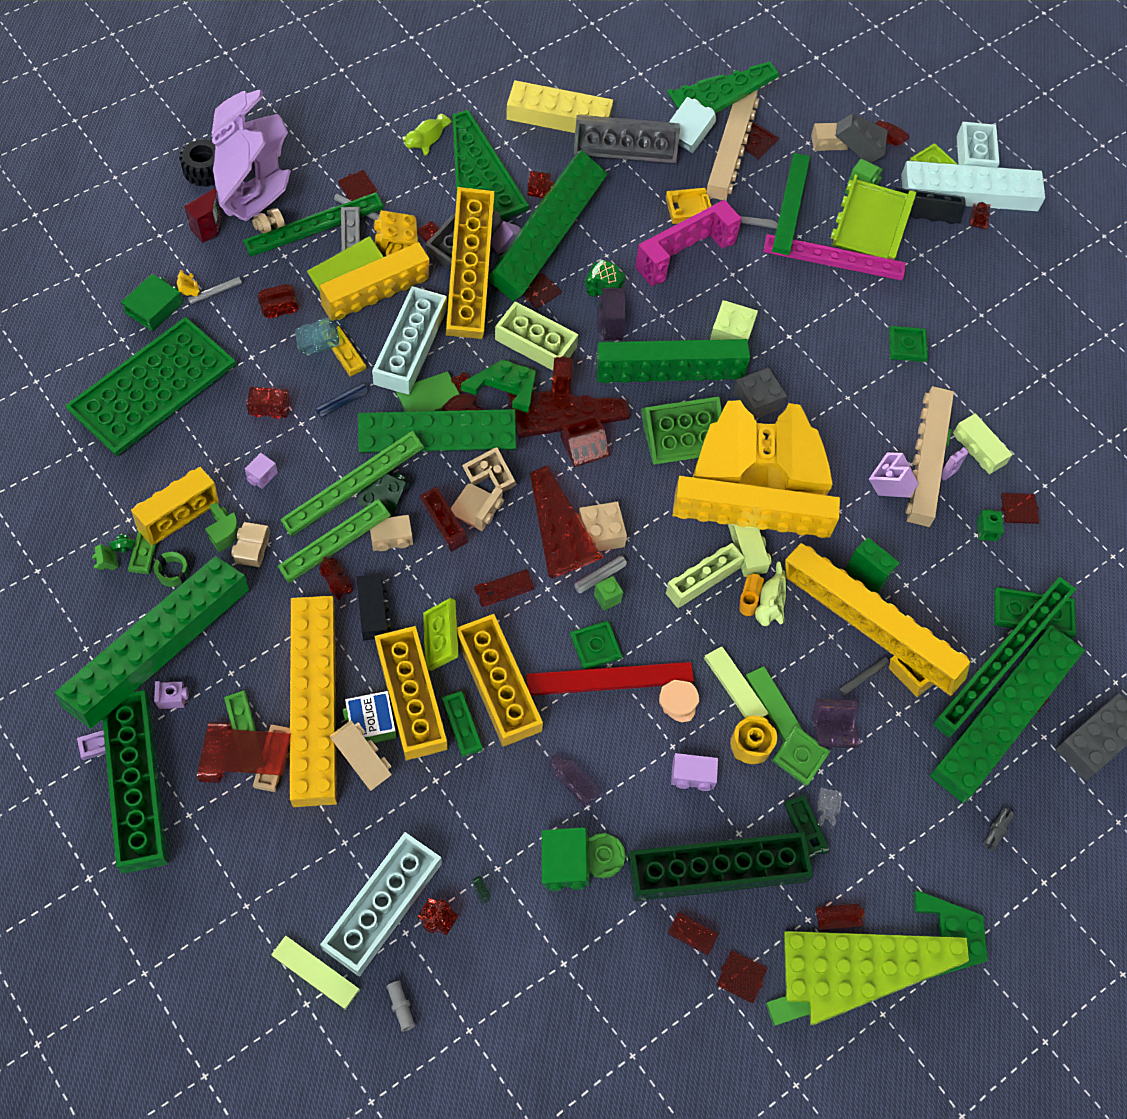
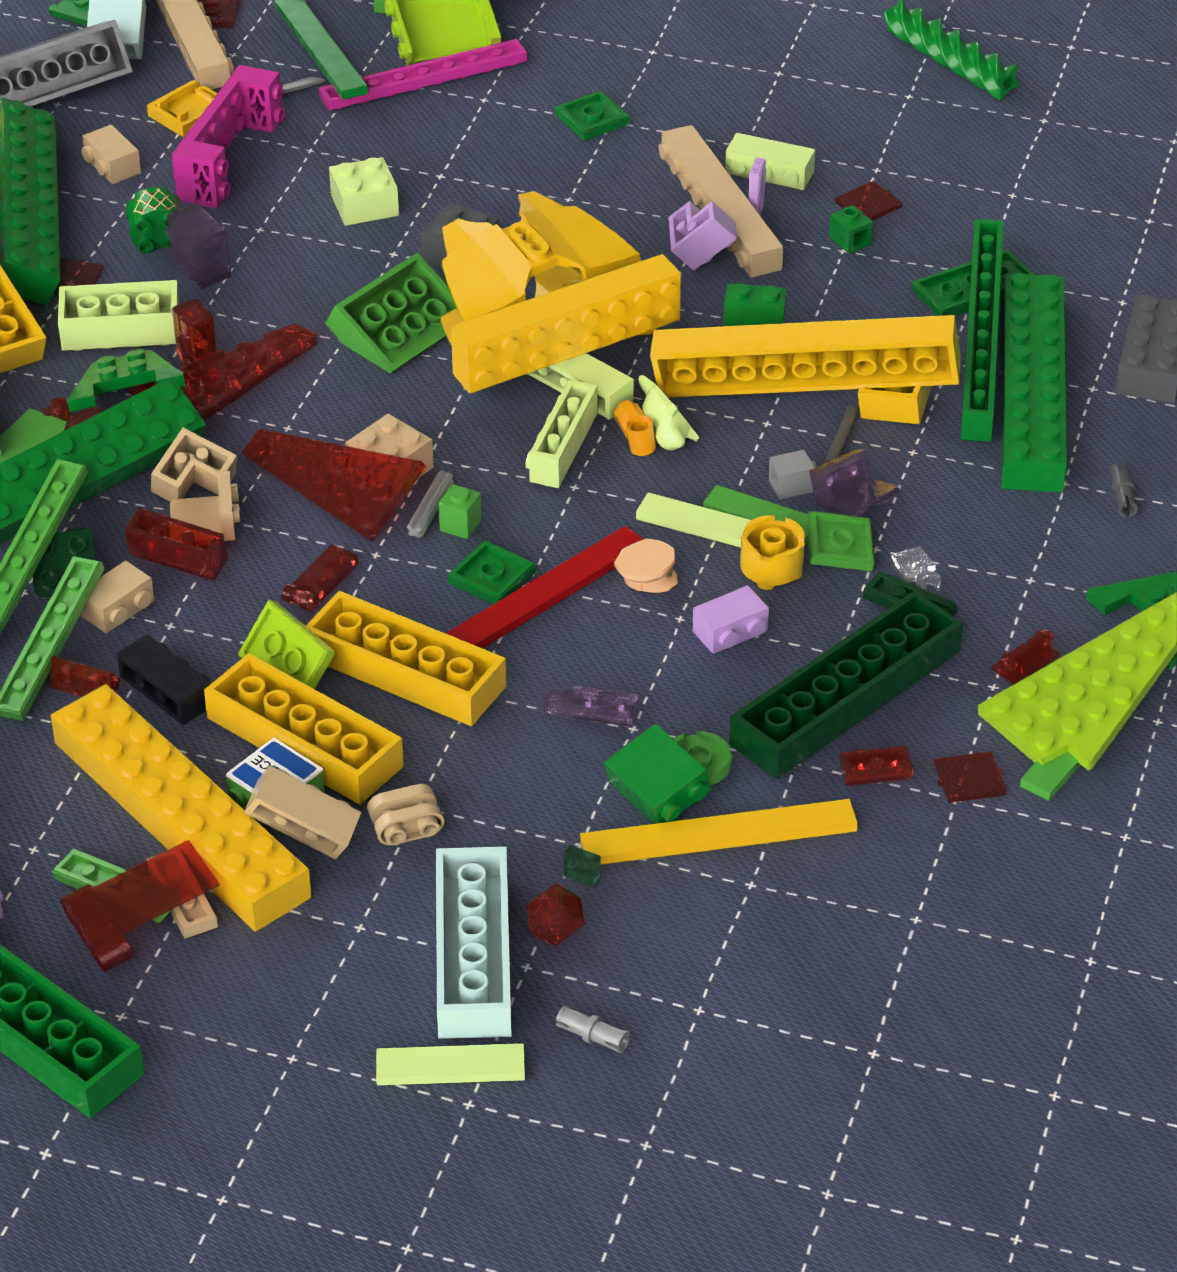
camera: 30 degrees left, 20 degrees down
(424, 798) = (405, 814): none -> tan brick
(462, 724) = (417, 737): green plate -> none
(574, 917) = (721, 831): none -> yellow tile
(584, 440) = (282, 382): clear red slope -> none
(621, 216) = (111, 154): none -> tan brick
(671, 360) = (318, 255): green brick -> none
(811, 688) = (790, 474): none -> light grey brick

